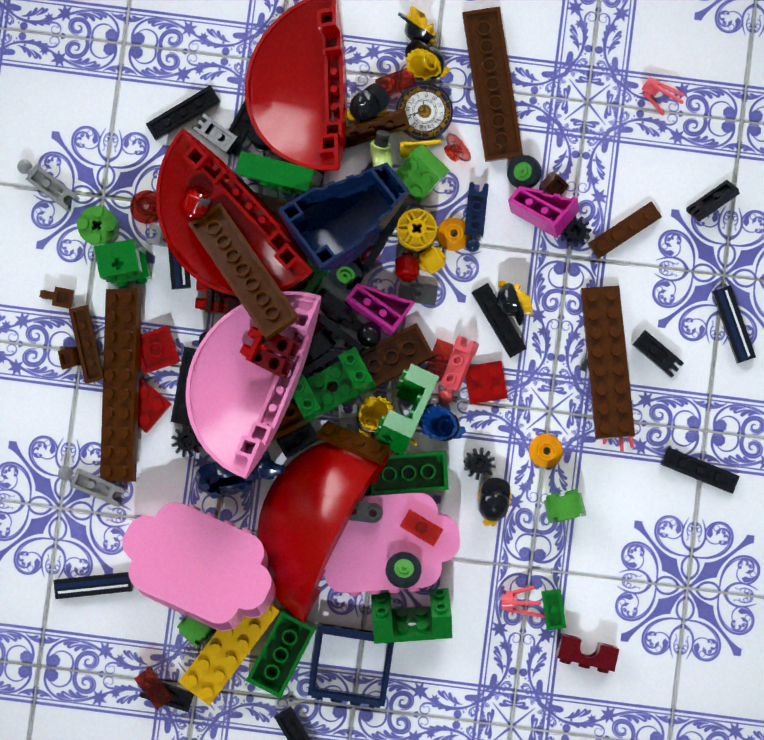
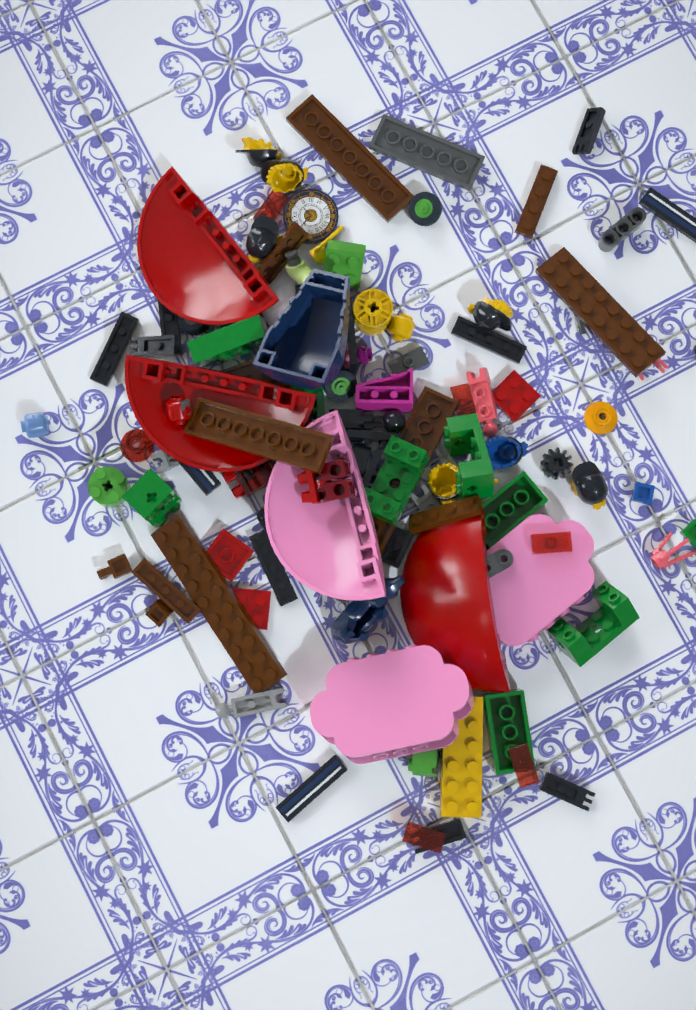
camera: 40 degrees left, 5 degrees down
(47, 184) = (41, 482): light grey plate -> none
(74, 132) = (35, 425): none -> medium blue head
(182, 445) = (309, 606): black gear -> none
(272, 688) = (523, 765): none -> clear red plate
(337, 695) = (594, 727): dark blue window -> none
(385, 261) = (364, 354): none -> magenta plate
(403, 570) = (562, 587): black wheel -> none
(407, 267) = (385, 347): red head -> none
(446, 240) = (407, 304): light orange piece -> none
(456, 149) = (357, 227): clear red piece -> none
(475, 216) = (410, 269): dark blue plate -> none
(533, 538) = (643, 493): none -> blue plate
(543, 210) = (462, 227): dark pink wedge -> none
(553, 184) = (455, 204): reddish brown slope -> none
(561, 124) = (426, 152): none -> dark grey plate
(564, 507) = (650, 450): bright green brick -> none
(579, 226) = (498, 221): black gear -> none
(653, 86) = (477, 77): coral plant -> none
(657, 353) = (632, 279): black hinge -> none
(688, 305) = (627, 223): none -> dark grey beam

